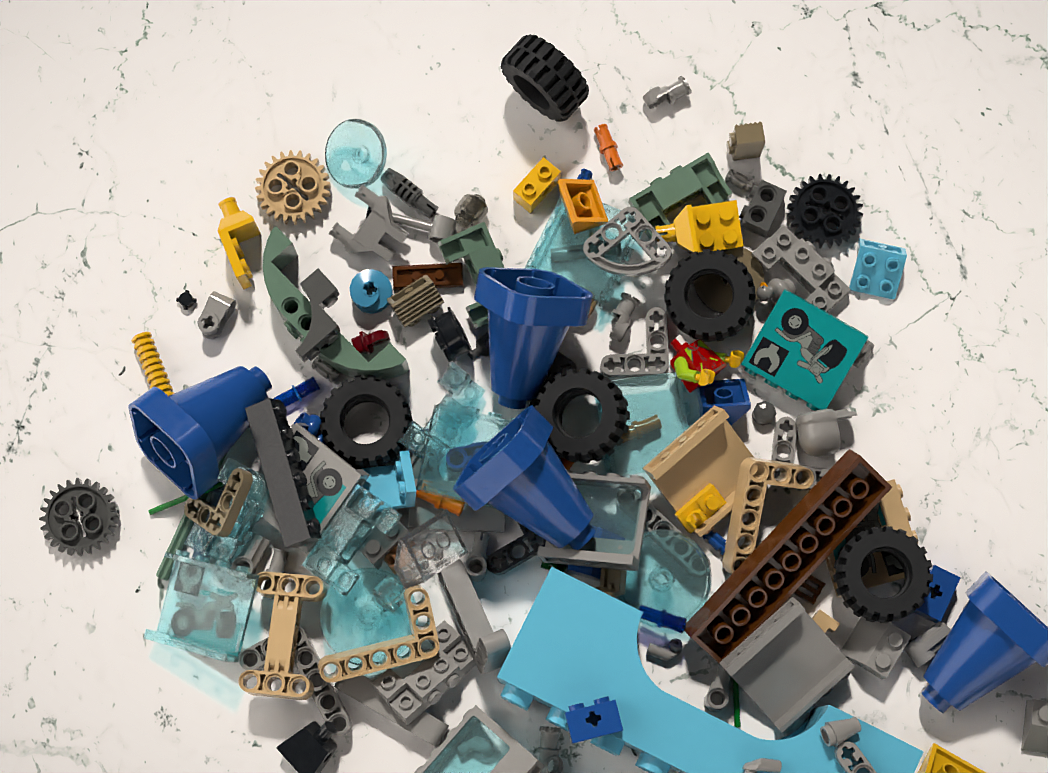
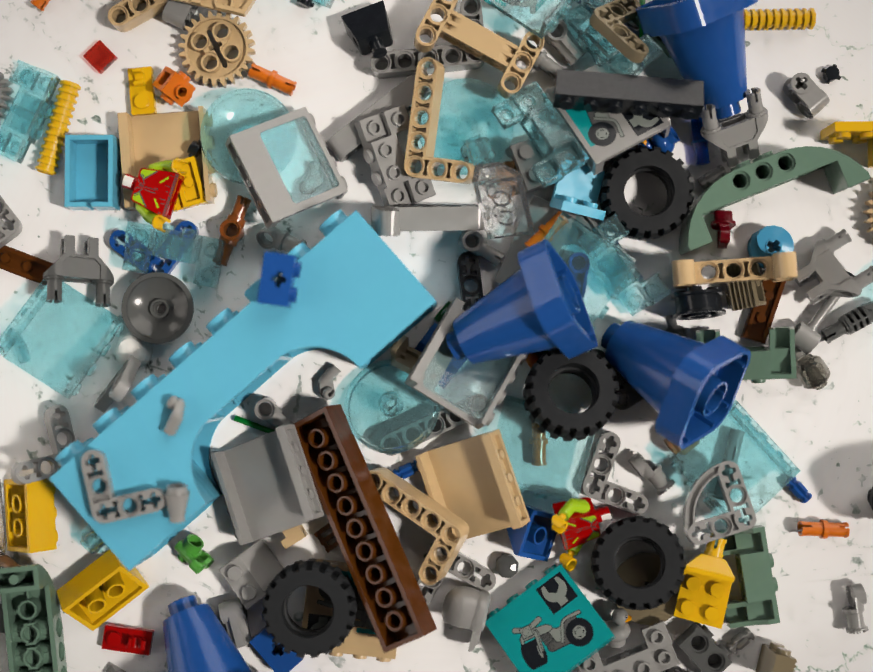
camera: 115 degrees right, 10 degrees up
(274, 361) = (737, 130): none -> light grey connector
(323, 328) = (752, 181): dark grey arch -> none
(391, 275) = (778, 268): none -> tan beam
(536, 185) = (812, 445): yellow brick -> none
(582, 204) = (776, 479): light orange slope -> none
(663, 619) = (354, 389): clear blue axle -> none
(700, 508) = (442, 468): yellow plate -> none
(882, 714) = (190, 552): none -> bright green plate
(991, 742) = (127, 639): none -> red plate

